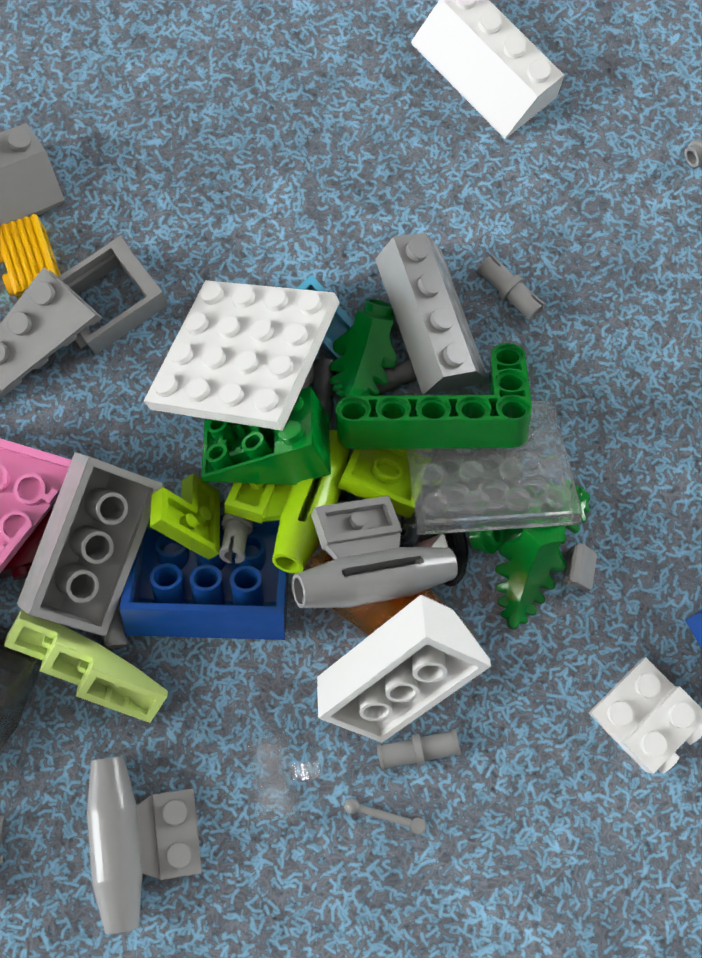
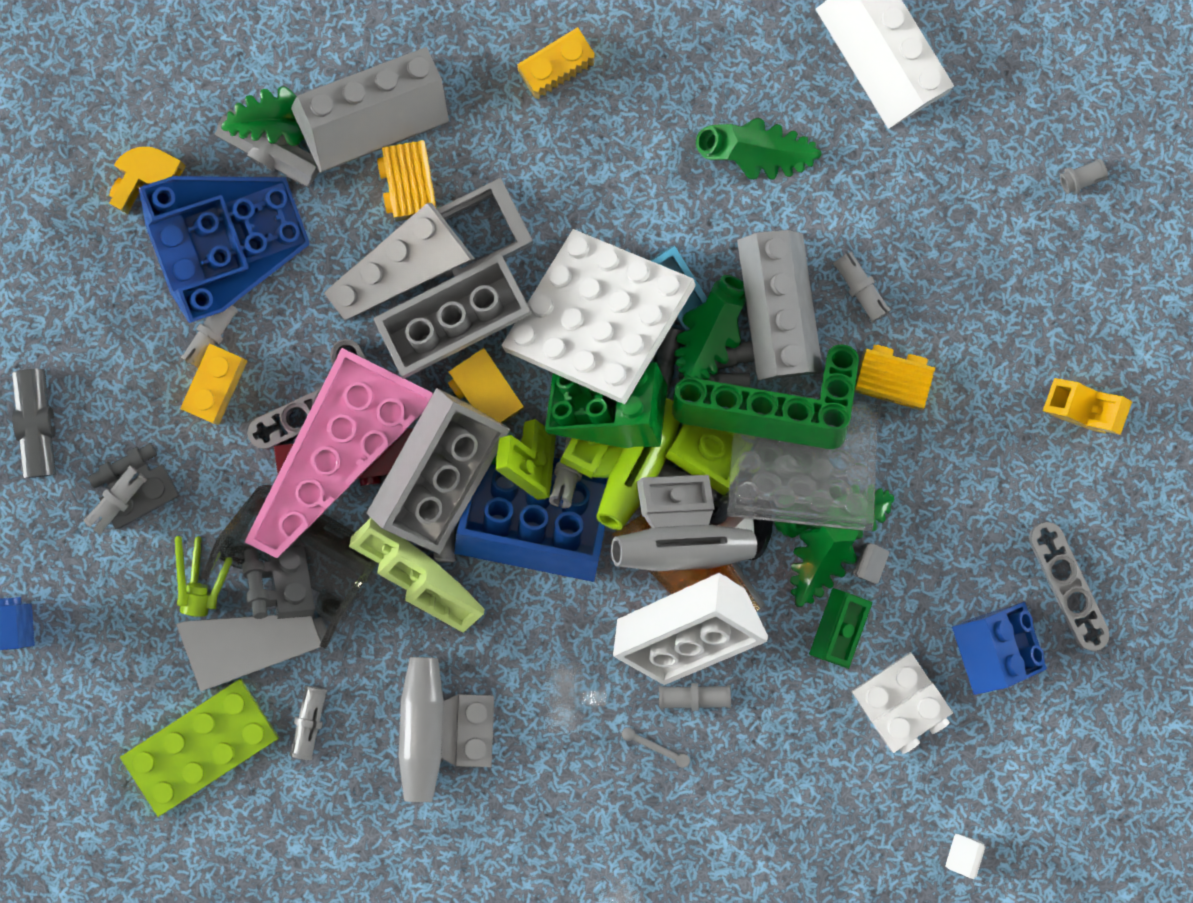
camera: 10 degrees right, 10 degrees up
(84, 378) = (452, 316): none -> light grey slope
(133, 448) = (485, 387): none -> yellow brick
(163, 124) = (556, 63): none -> yellow brick
(377, 174) = (756, 148): none -> green plant
(562, 644) = (840, 628): none -> green slope
(566, 370) = (894, 378): none -> yellow brick

